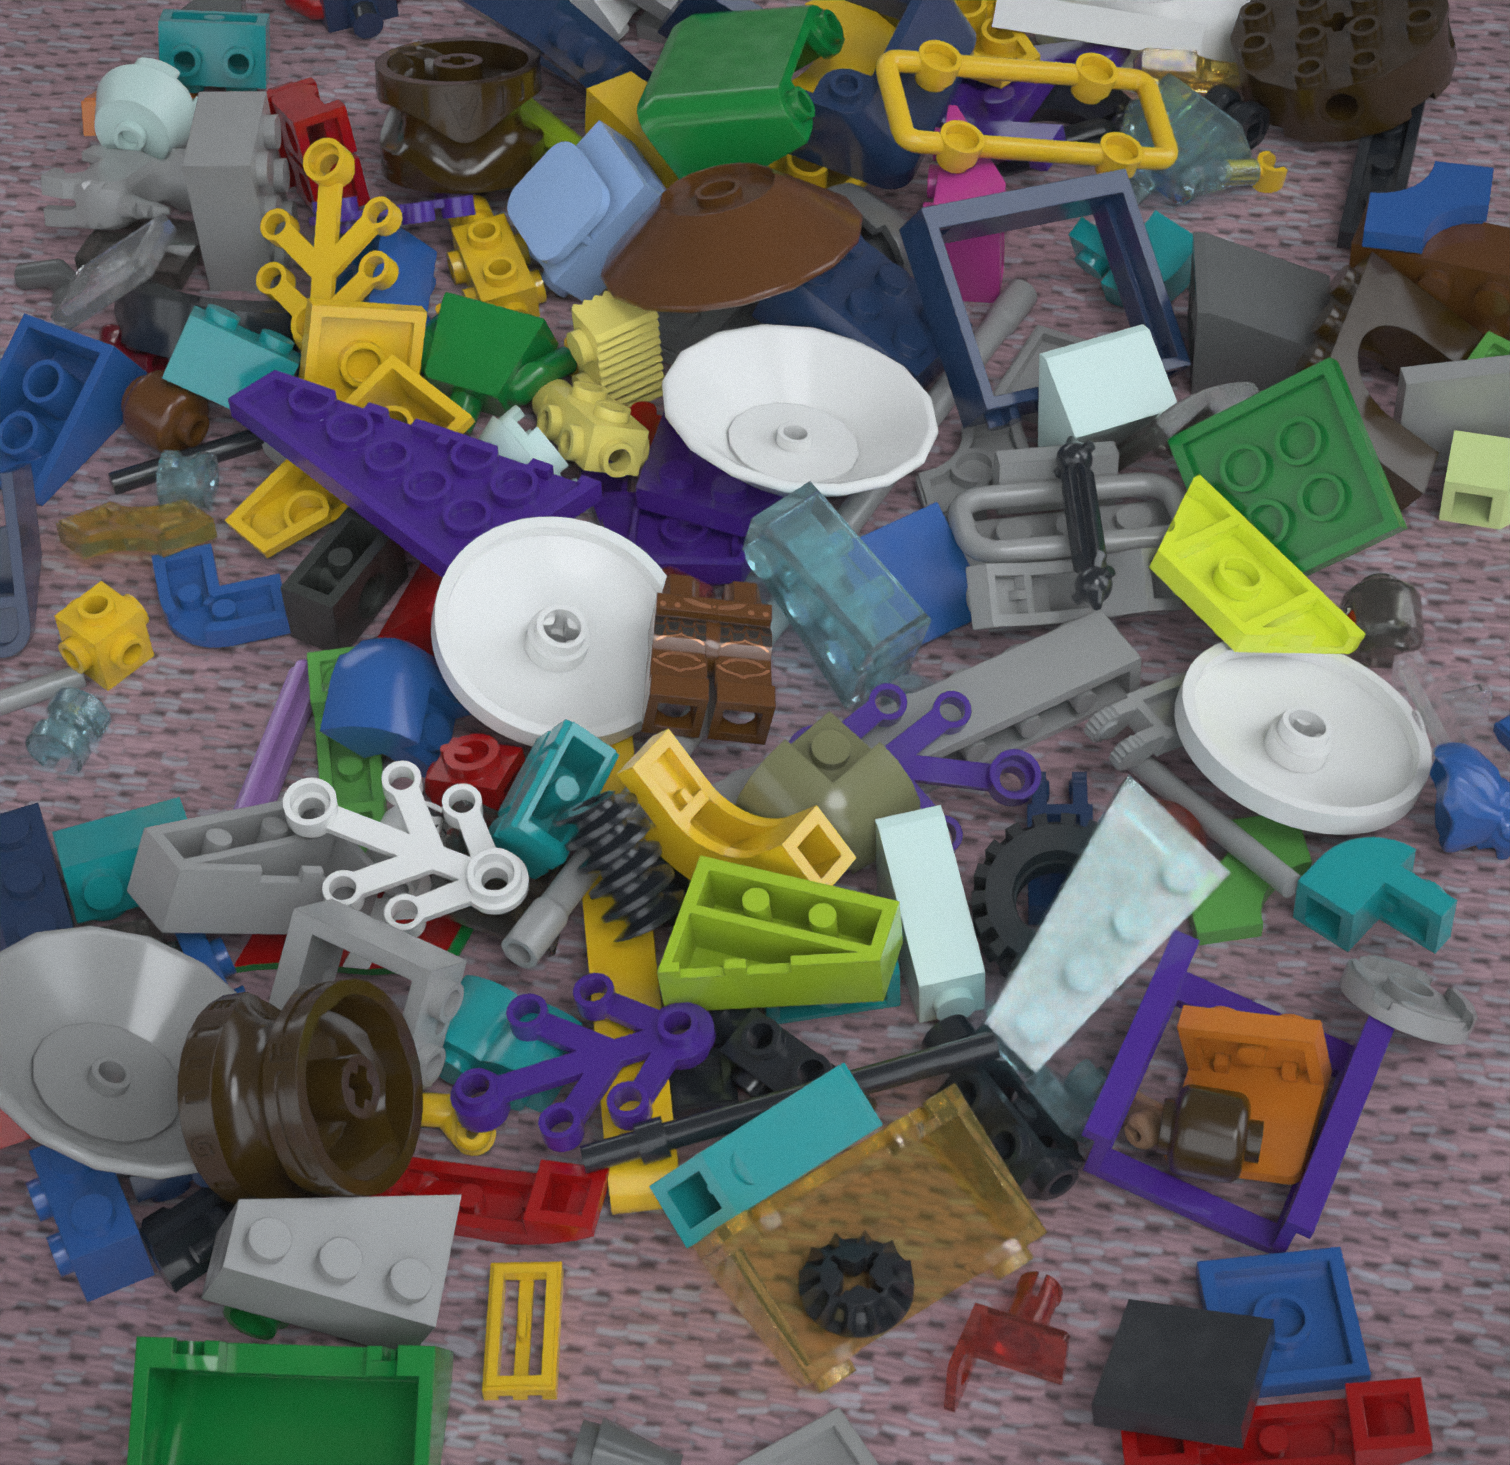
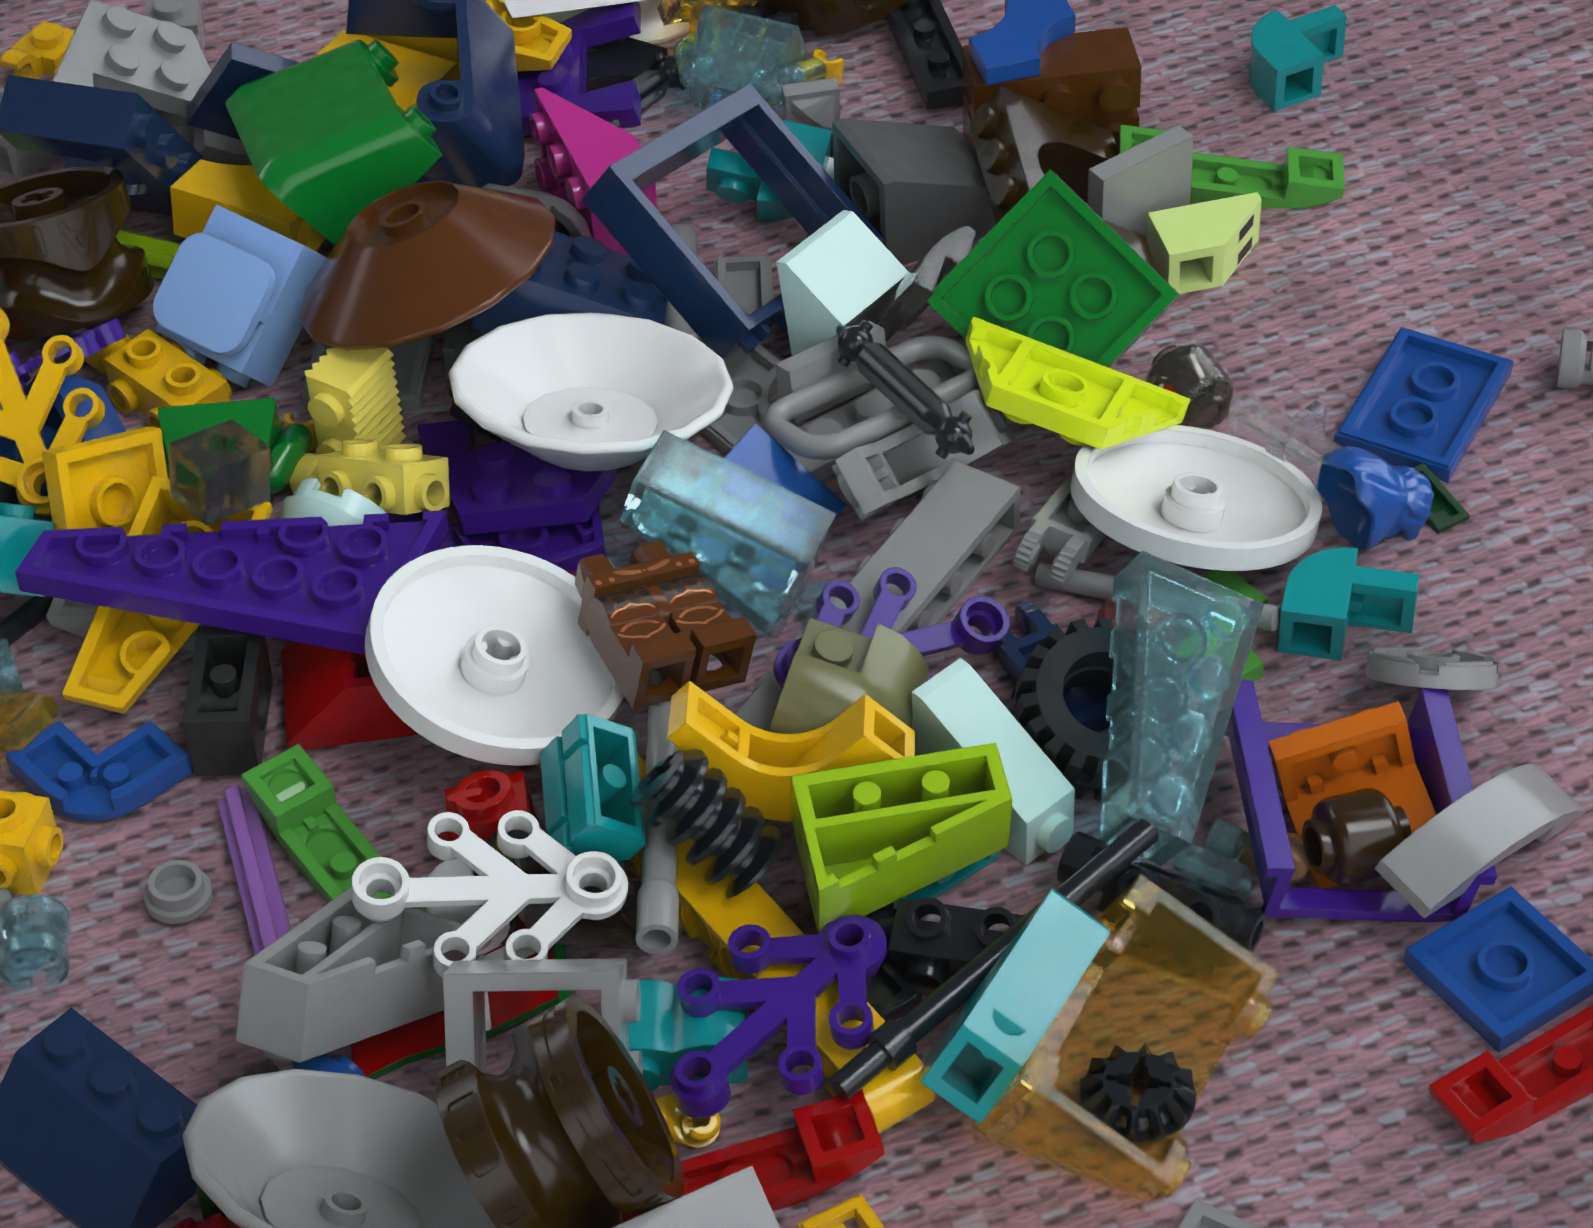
camera: 30 degrees left, 5 degrees down
(101, 857) = (187, 1023): teal brick -> none
(208, 735) = (177, 892): none -> light grey plate
(391, 703) = (366, 783): blue brick -> none
(436, 372) = (219, 471): none -> clear smoke brick
(961, 143) = (581, 114): yellow bar -> none
(1012, 1338) = (1304, 1076): clear red bracket -> none
(1184, 1373) = (1470, 1033): black tile -> none
(1222, 207) = (812, 102): none -> light grey tile
(1332, 1181) = (1475, 834): none -> light grey slope

